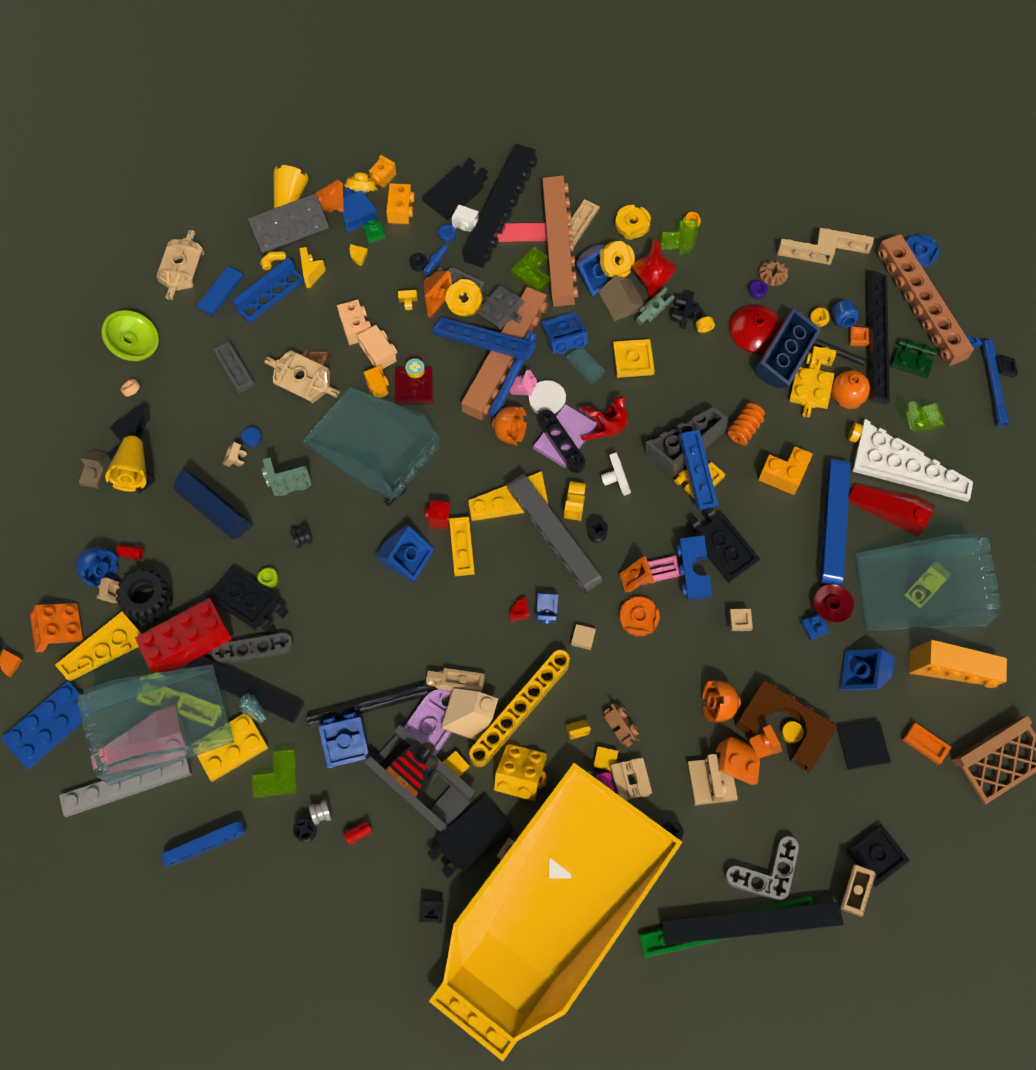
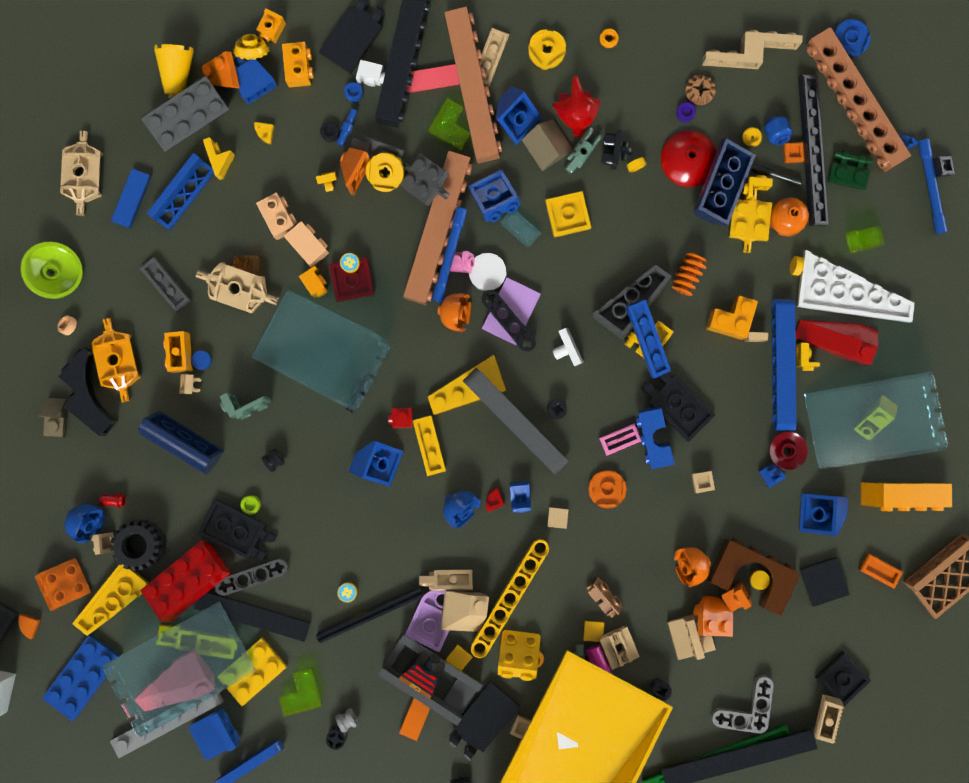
camera: 10 degrees left, 20 degrees up
(128, 466) = (88, 419): yellow cone -> none
(171, 437) = (125, 371): none -> light orange plate
(174, 805) = (215, 734): none -> blue bracket
(231, 422) = (178, 352): none -> light orange brick
(251, 707) = (262, 636): clear light blue cone -> none
(270, 257) = (171, 155): yellow arm -> none
(343, 740) = (354, 652): blue plate -> none
(348, 679) = (347, 592): none -> tile
(357, 833) = (382, 733): red pin -> none
(373, 231) = (276, 101): green tile -> none
(395, 824) = (414, 720): none -> orange tile
(483, 608) = (459, 507): none -> blue cylinder
(484, 338) = (414, 219): blue tile -> none
(575, 501) = (531, 380): yellow leg -> none
(578, 729) = (564, 607): yellow slope -> none
(608, 255) = (528, 102): yellow plate -> none
(608, 423) = (553, 291): red piece -> none
(636, 575) = (600, 452): orange slope -> none
(683, 239) = (604, 64): clear neon green brick -> none
(808, 491) = (756, 337): none -> tan tile
(856, 516) = (803, 354): none -> yellow bracket

